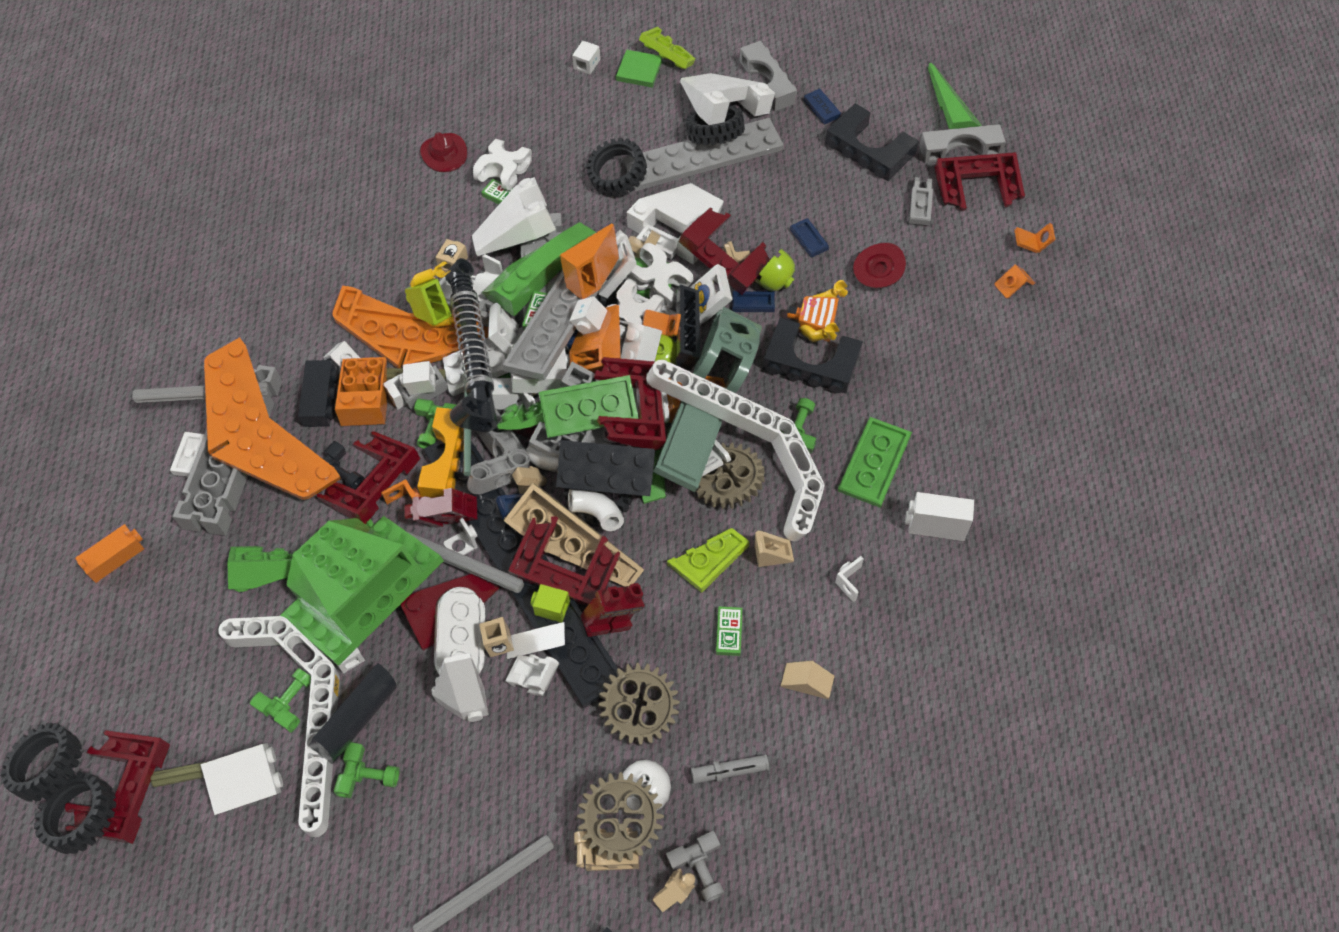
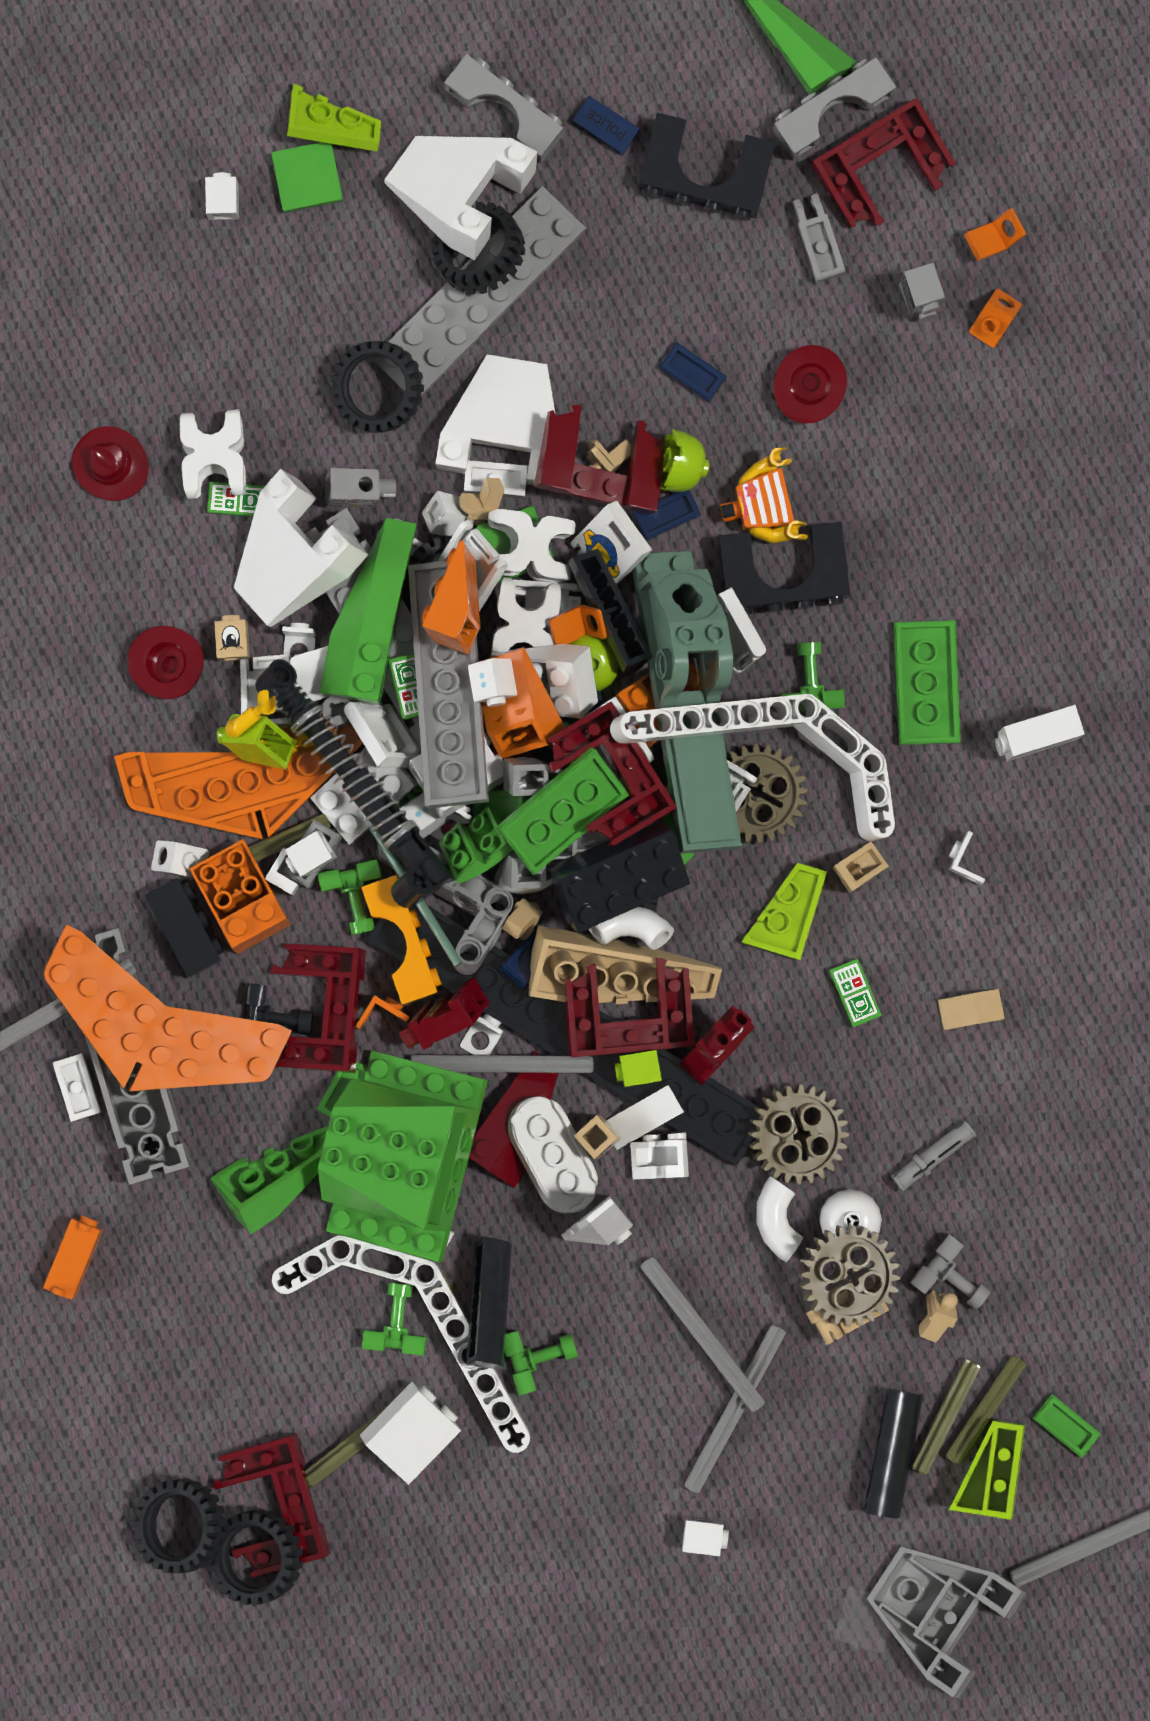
camera: 25 degrees left, 25 degrees up
(405, 250) = (165, 662): none -> dark red hat
(491, 817) = (702, 1334): none -> light grey axle
(573, 207) = (344, 491): none -> light grey torso
(588, 756) = (773, 1221): none -> white cylinder
(762, 373) = (744, 638): none -> white container
(974, 243) = (922, 292): none -> light grey brick

